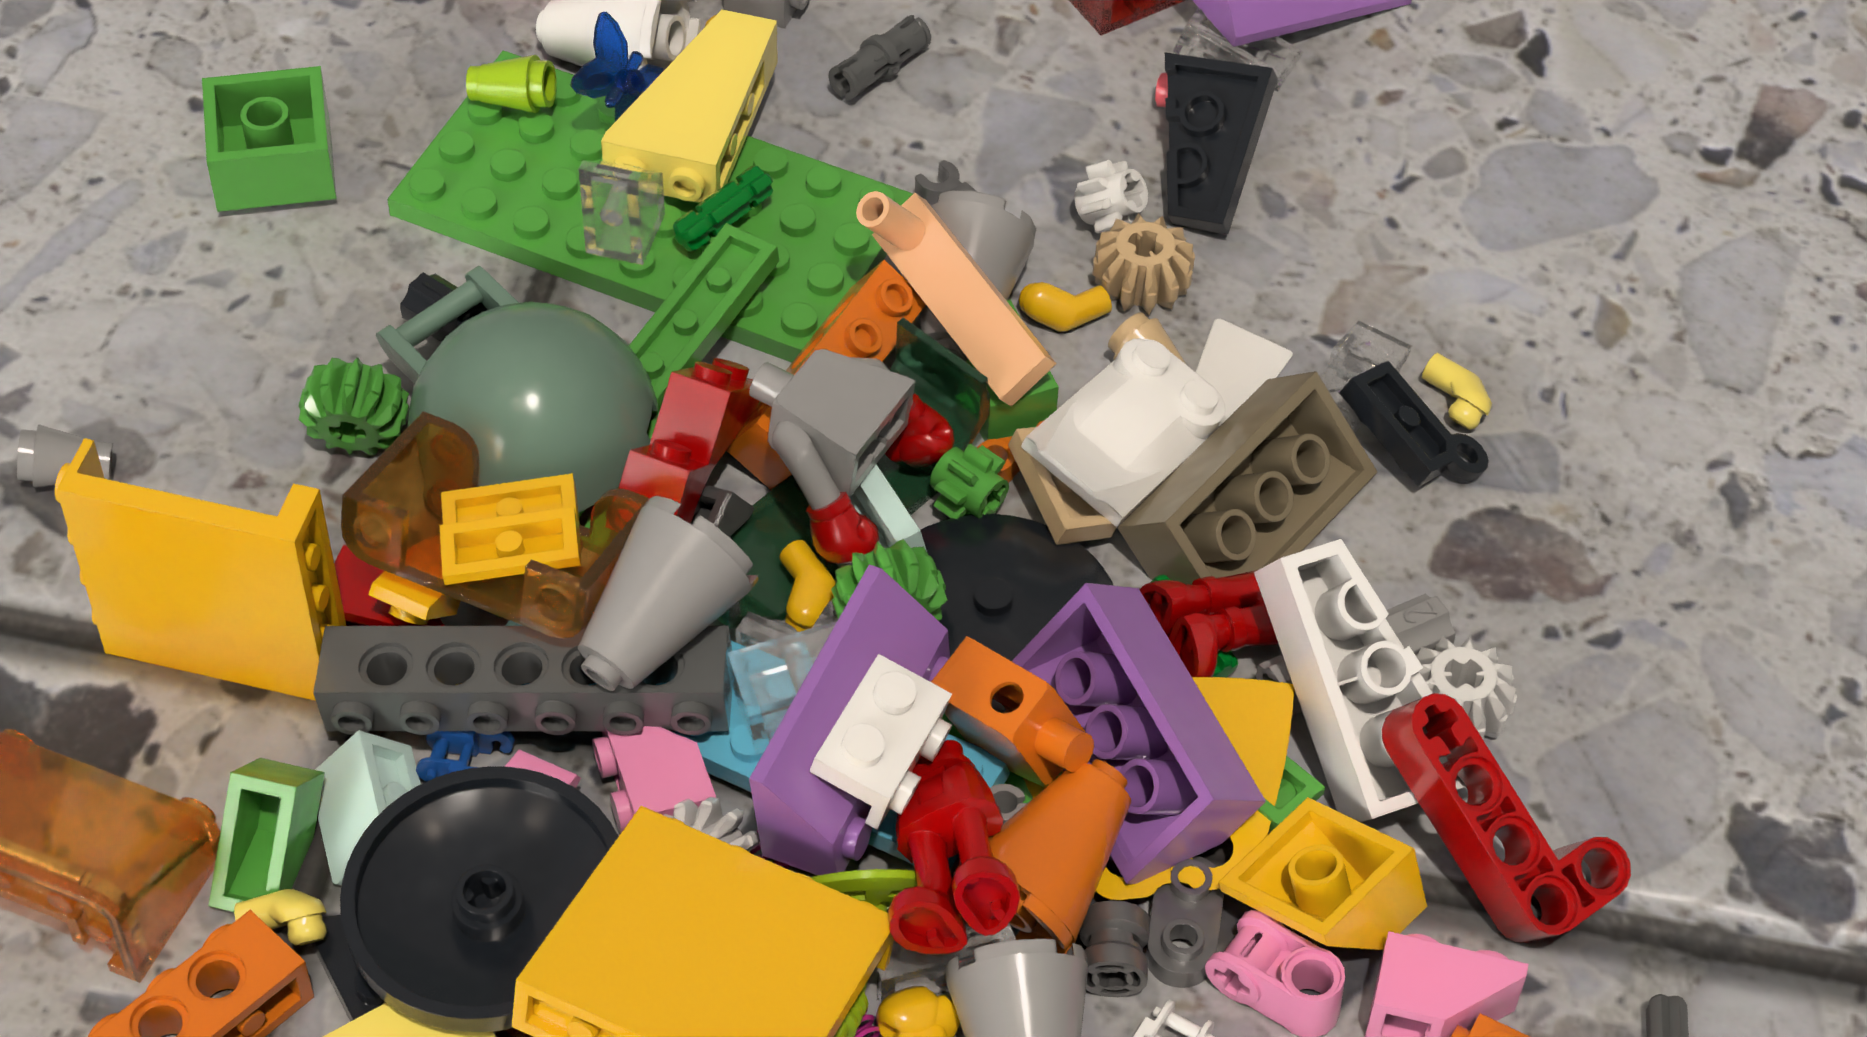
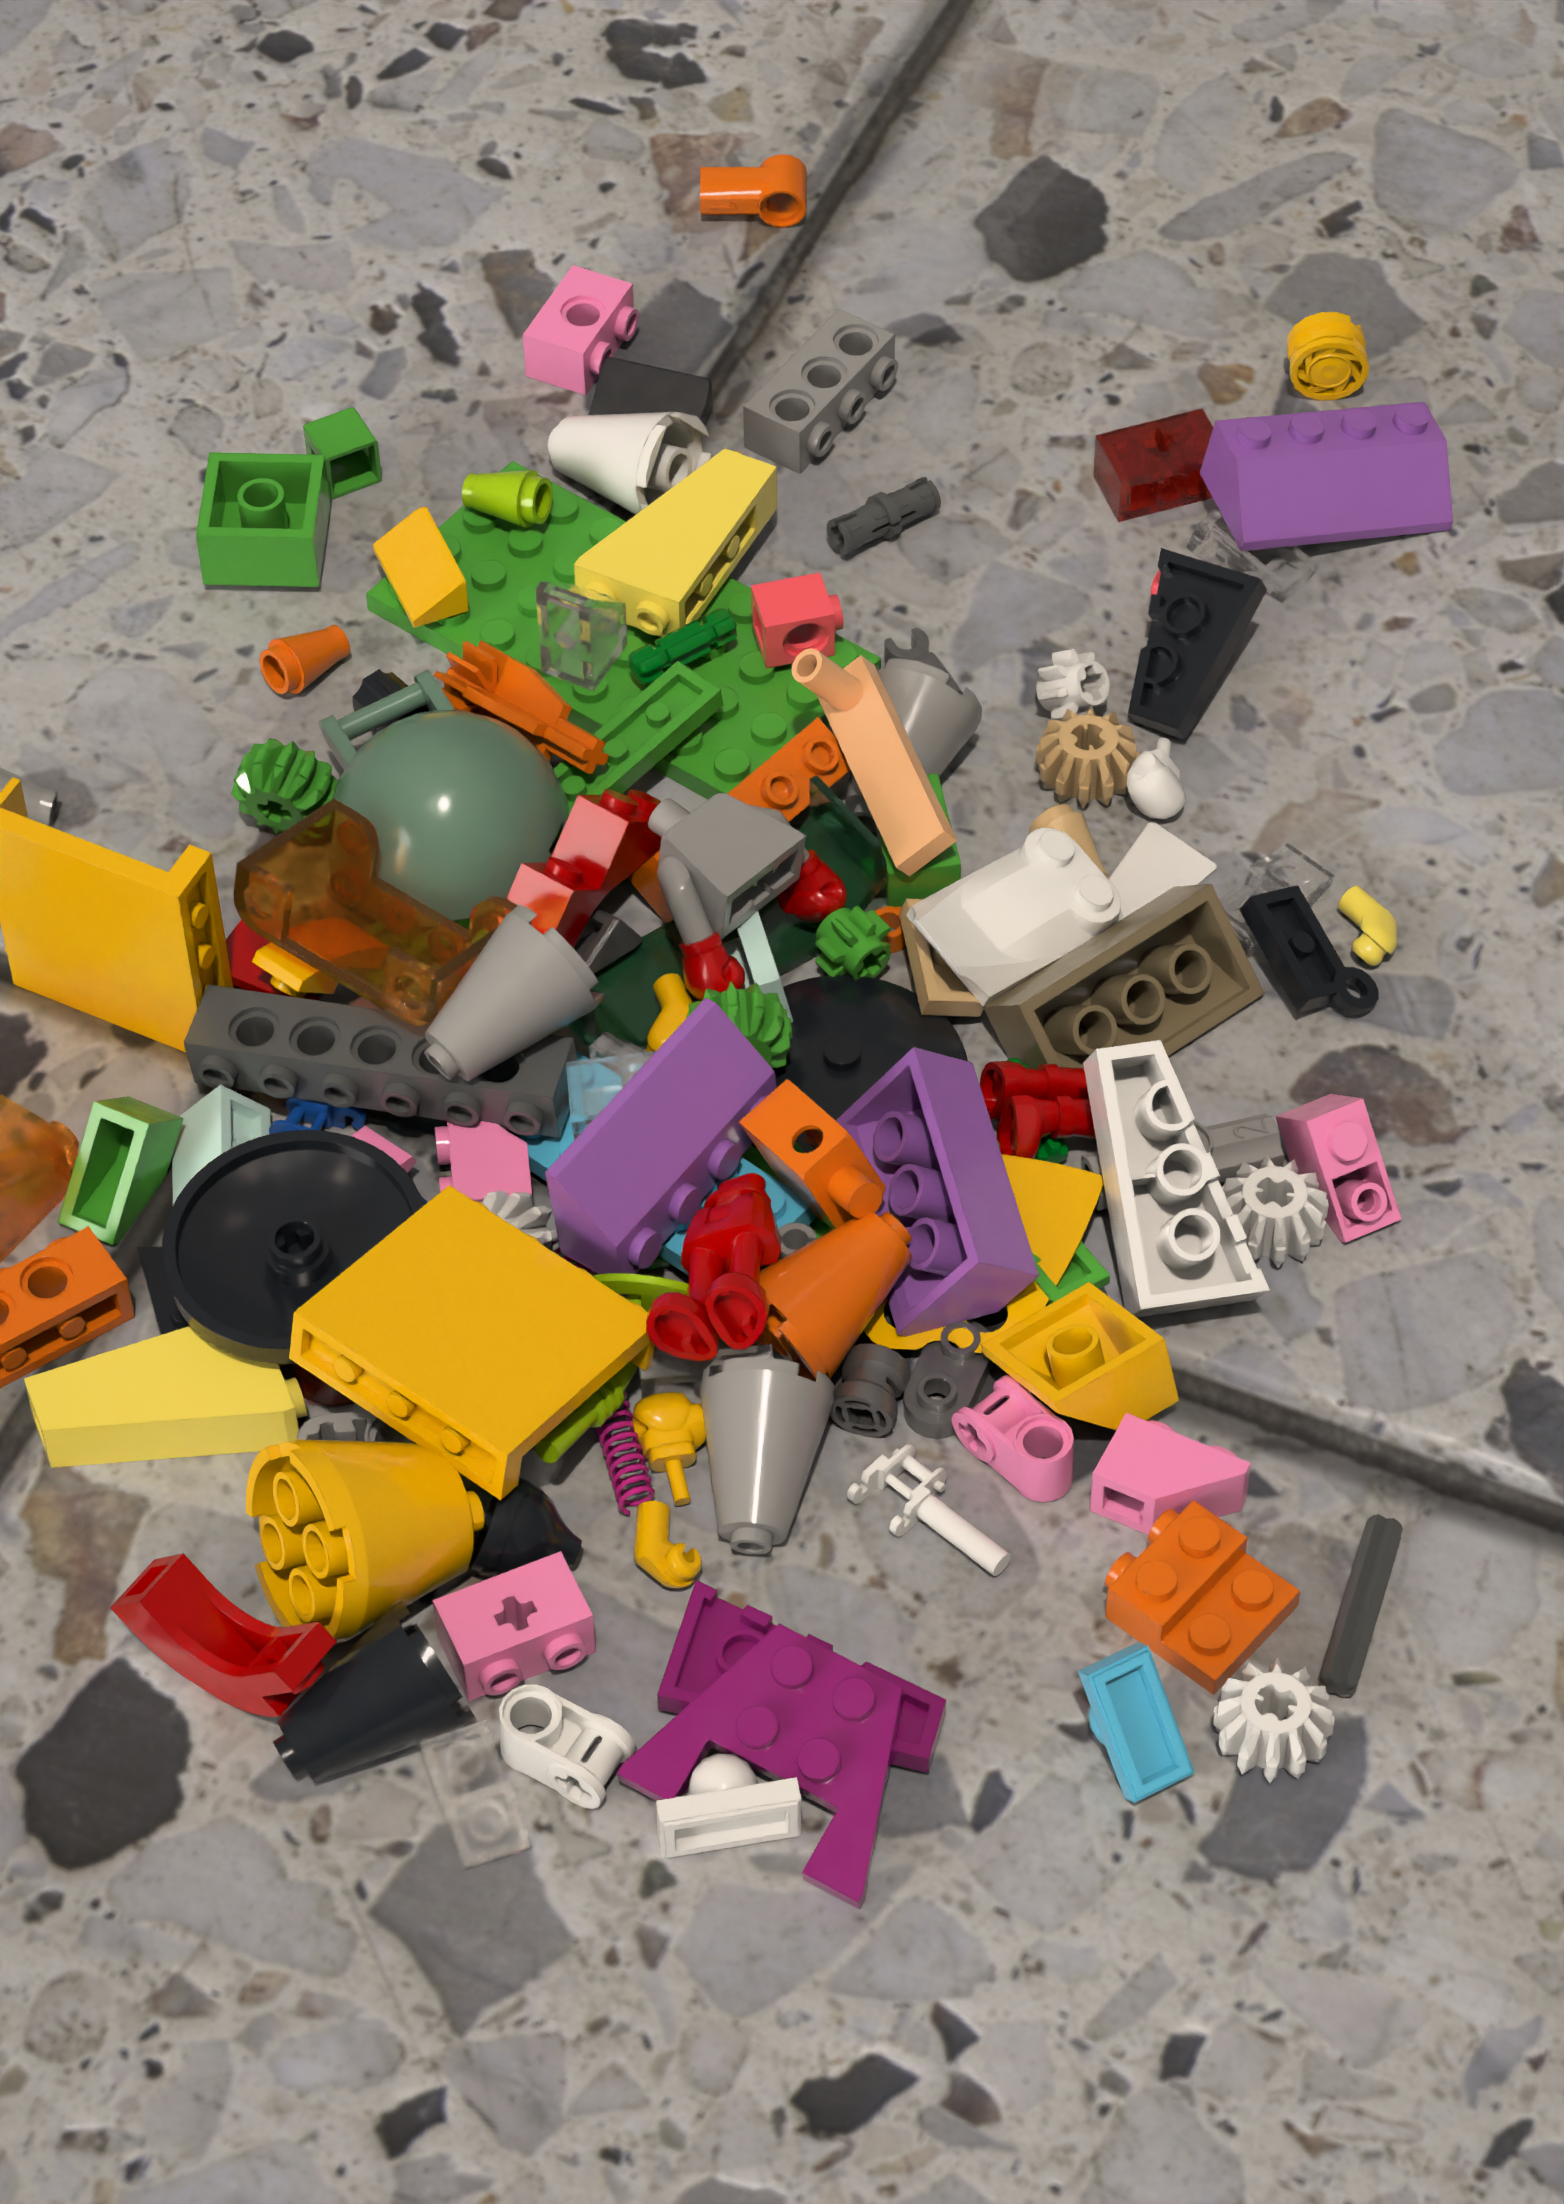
camera: 15 degrees right, 0 degrees up
(290, 908) = (127, 1234): light yellow arm -> none
(334, 48) = (344, 442): none -> bright green piece
(336, 273) = (300, 659): none -> orange cone
(443, 167) = (422, 569): none -> yellow slope
(505, 525) = (389, 912): yellow slope -> none
(568, 276) = (517, 695): none -> orange piece
(611, 70) = (600, 495): clear blue piece -> none
(828, 167) = (794, 617): none -> coral brick
(883, 736) = (683, 1158): white bracket -> none
(1061, 309) = (995, 791): yellow arm -> none
(1216, 281) = (1156, 782): none -> white piece
(1497, 811) = (1259, 1321): red beam -> none
(1507, 611) = (1341, 1147): none -> bright pink slope

